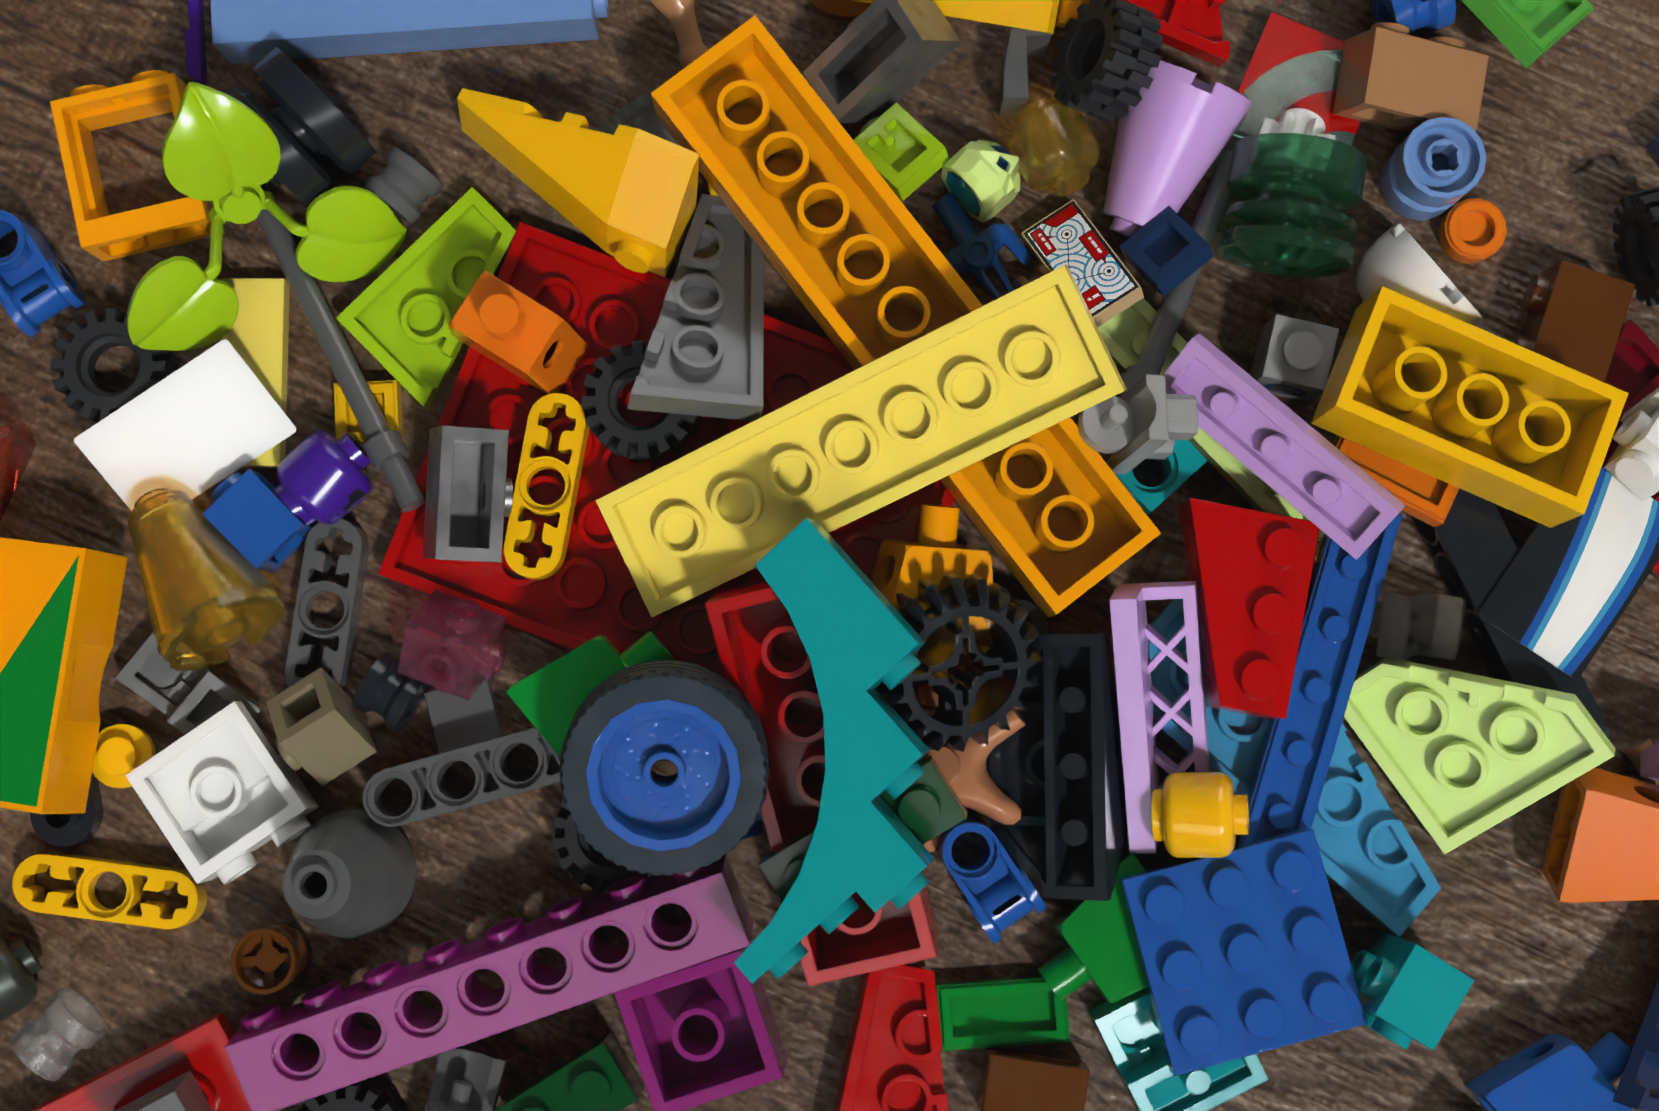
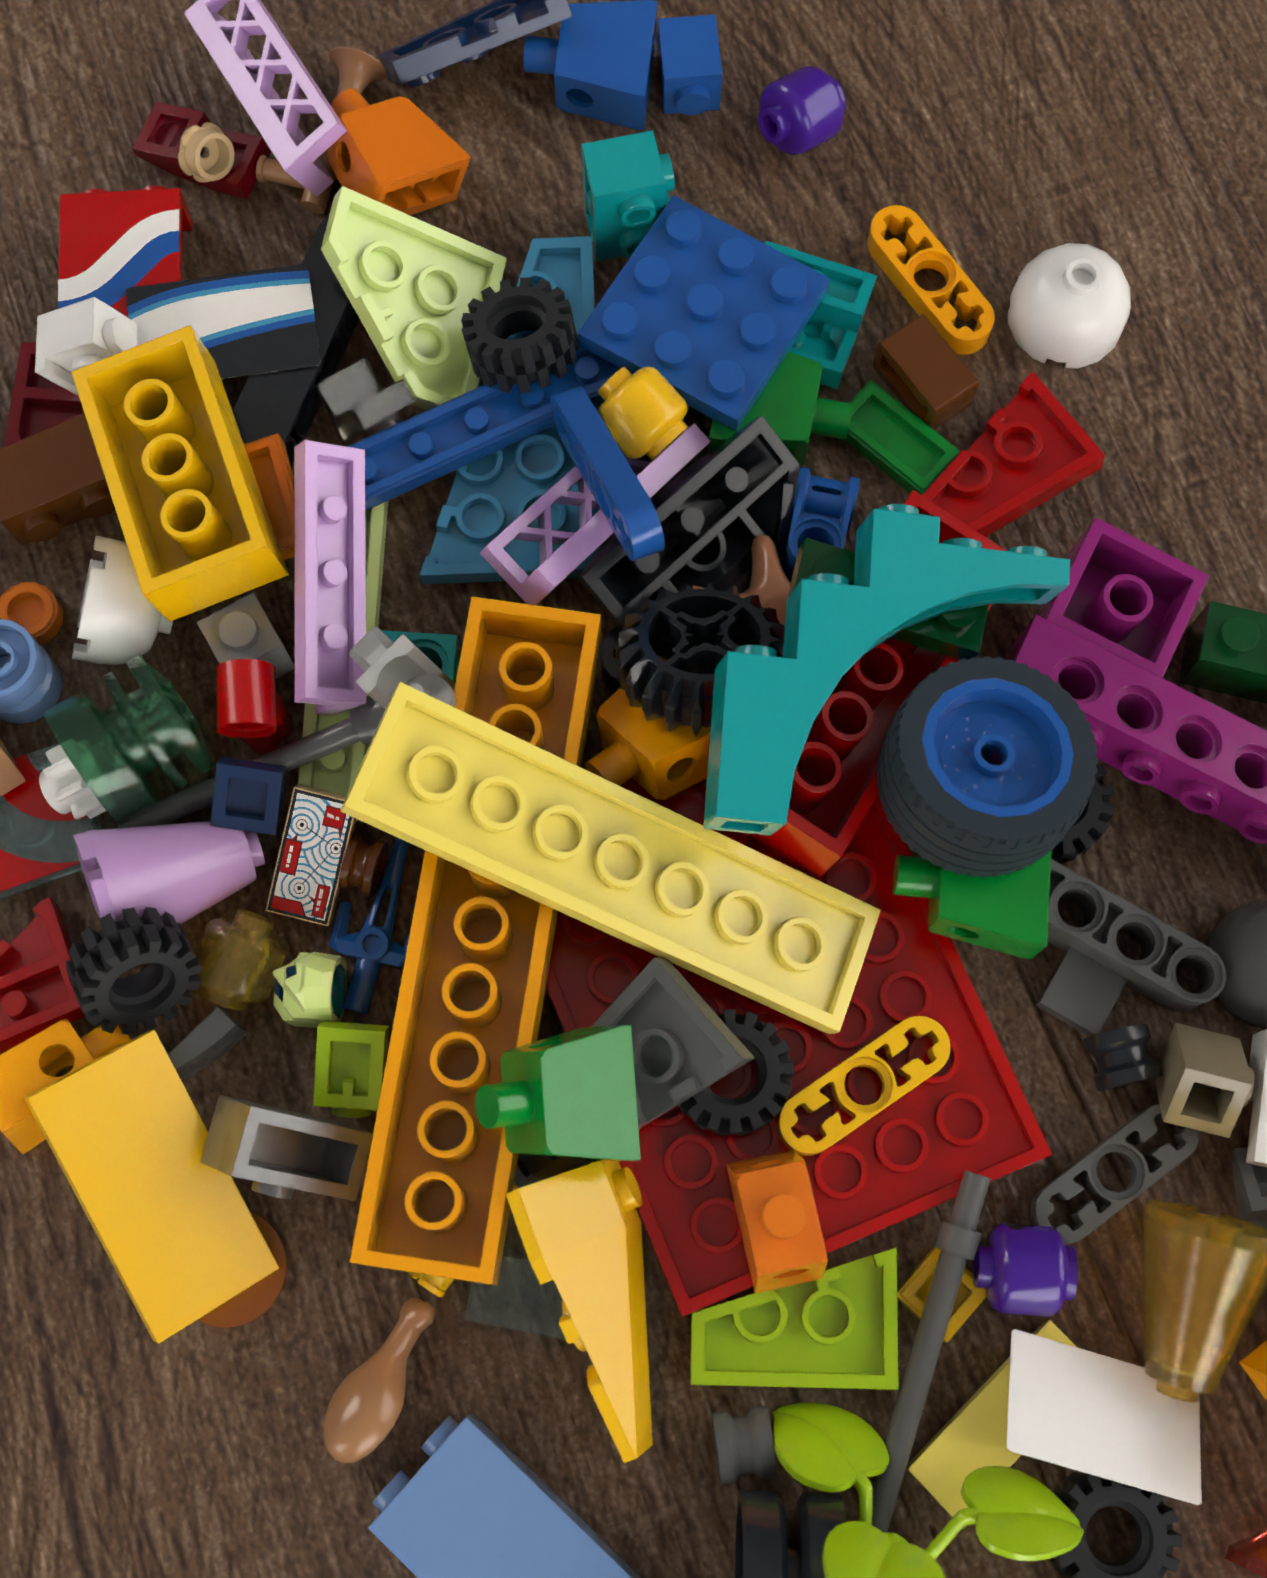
camera: 135 degrees left, 10 degrees down
(256, 520) = (1110, 1294): blue brick -> none
(452, 645) = (1045, 1040): clear pink brick -> none
(466, 494) = (934, 1130): flat silver brick -> none
(724, 255) = (567, 1096): none -> torso
(1167, 726) = (607, 474): none -> blue beam
(1235, 311) = (250, 704): none -> red piece
(1251, 601) = (455, 505): red wedge -> none
(1386, 793) = (525, 358): none -> black tyre

